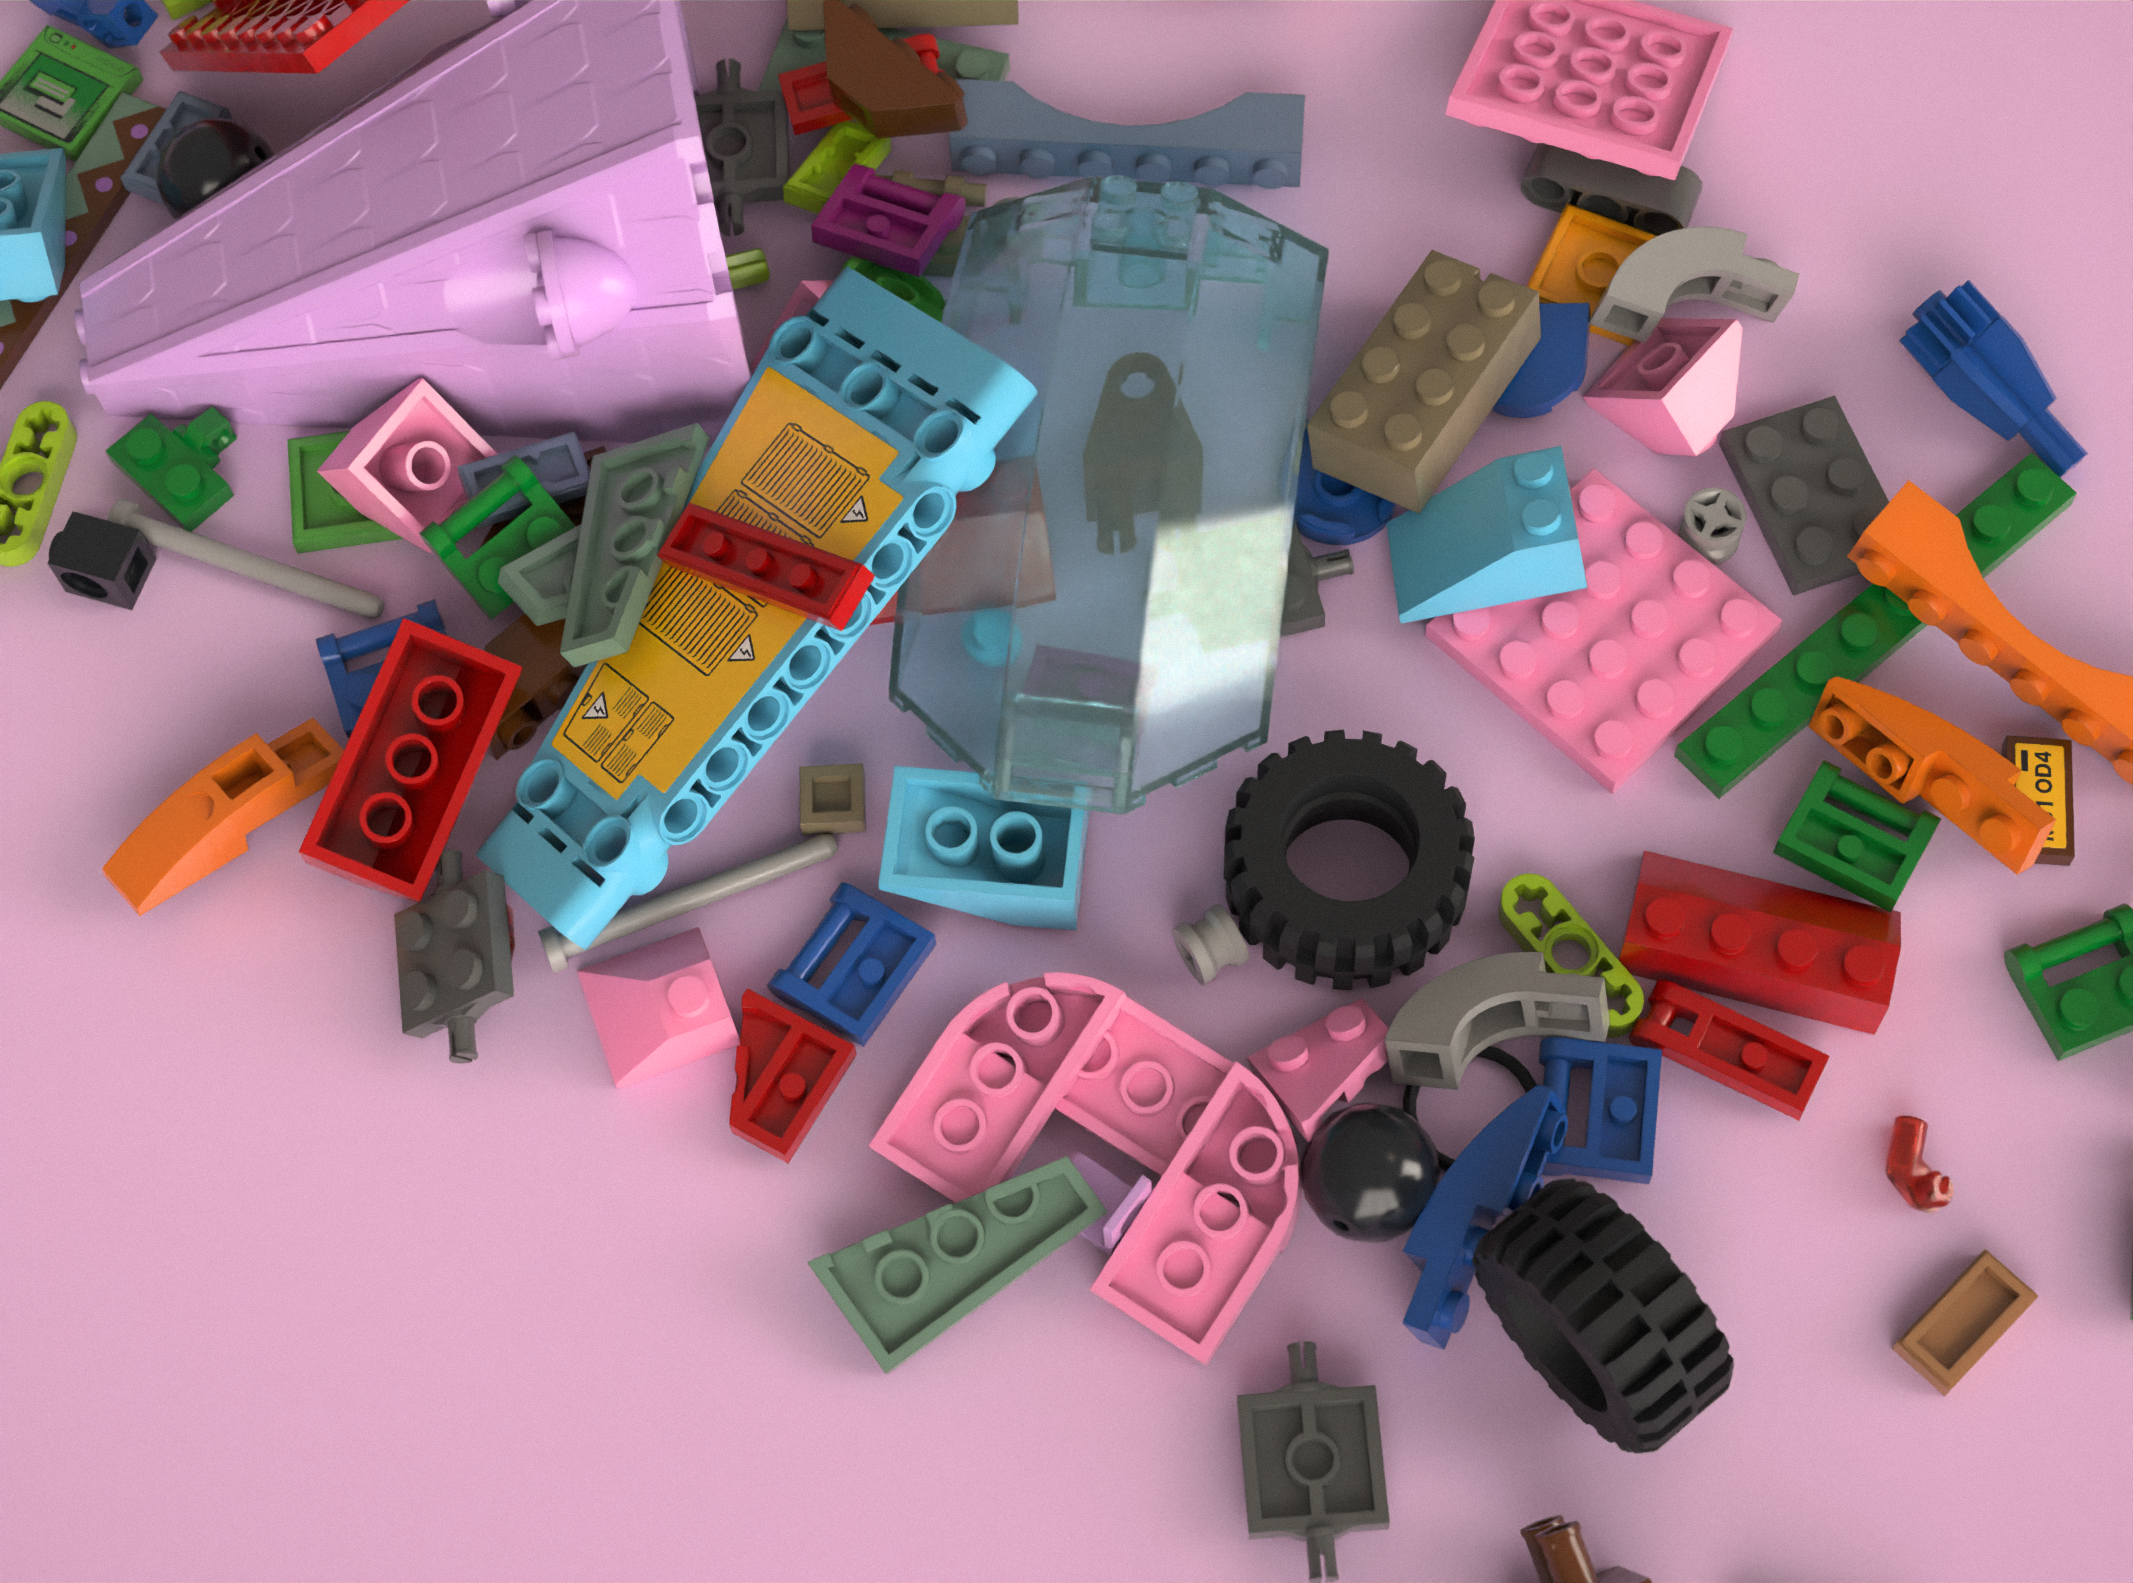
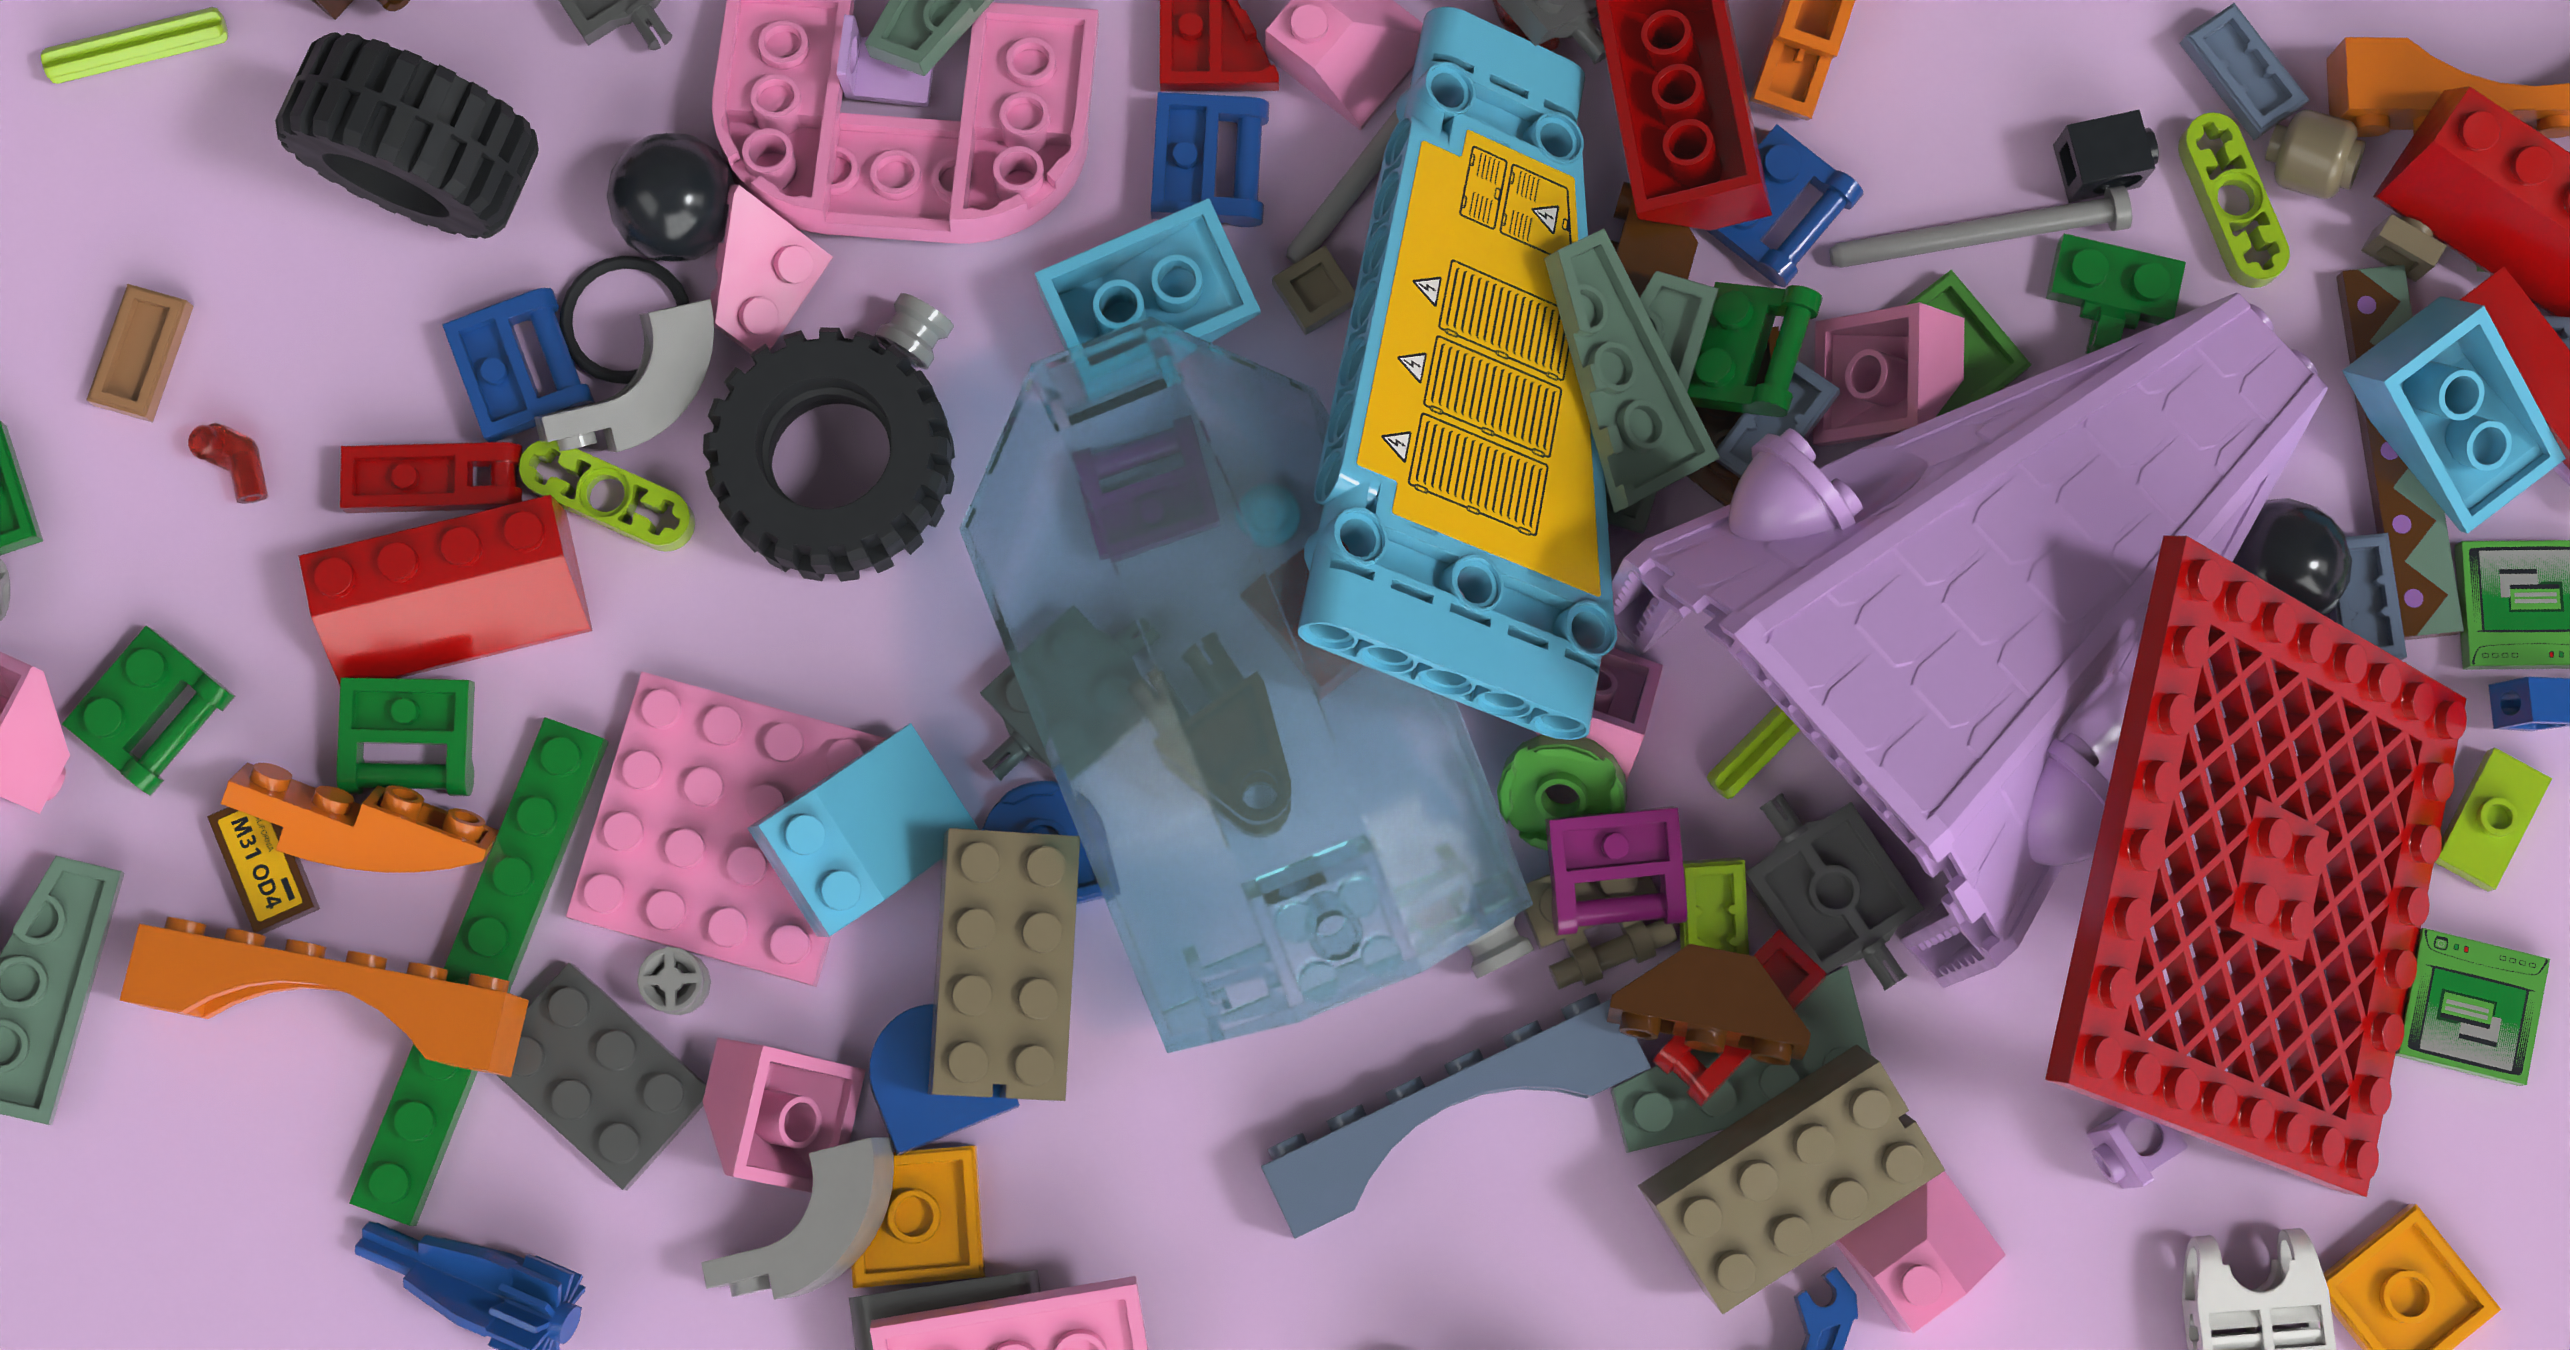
camera: 145 degrees right, 15 degrees up
(766, 566) = (1457, 367): red tile -> none
(1477, 1191) = (569, 215): blue slope -> none

